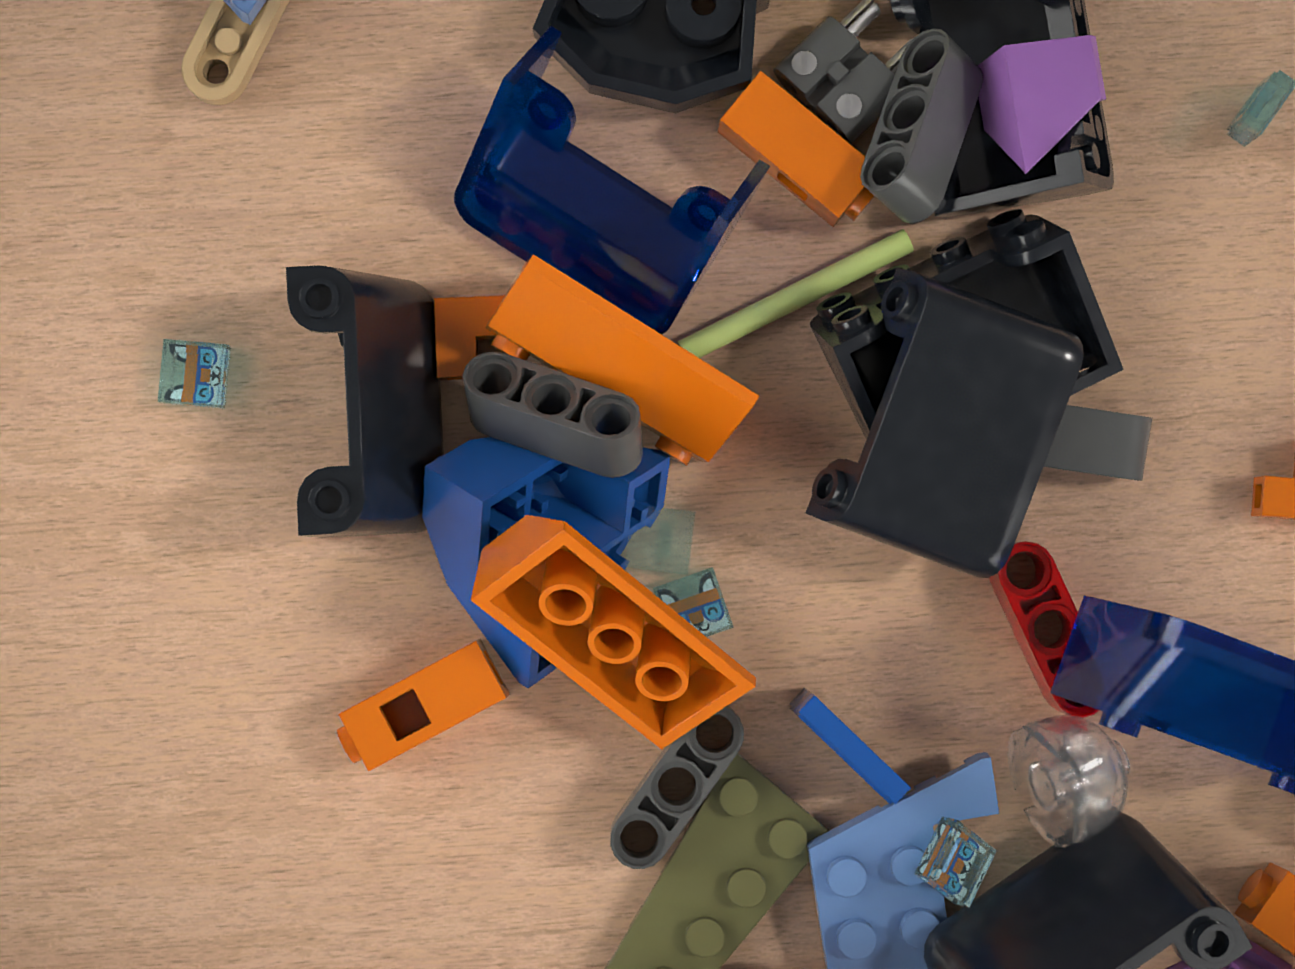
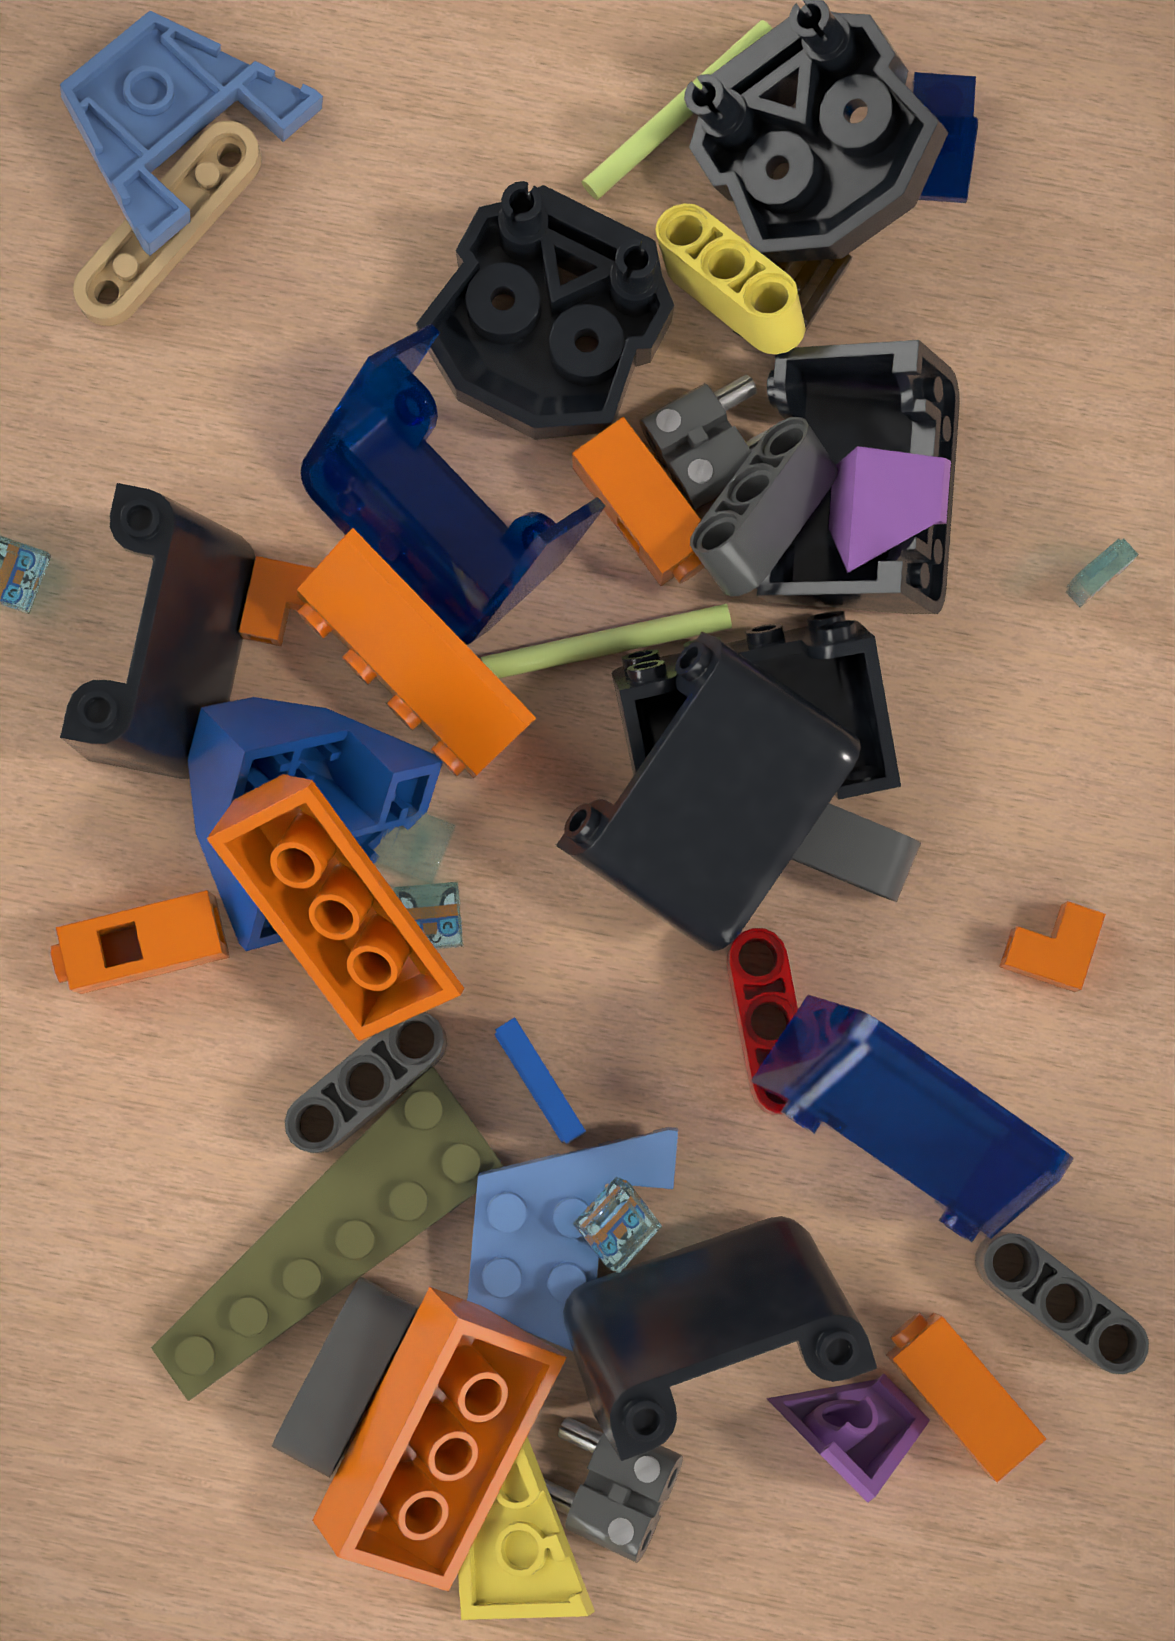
camera: 20 degrees right, 5 degrees down
(553, 414) = (338, 690): dark grey beam -> none
(1072, 776) = (754, 1168): clear cylinder -> none

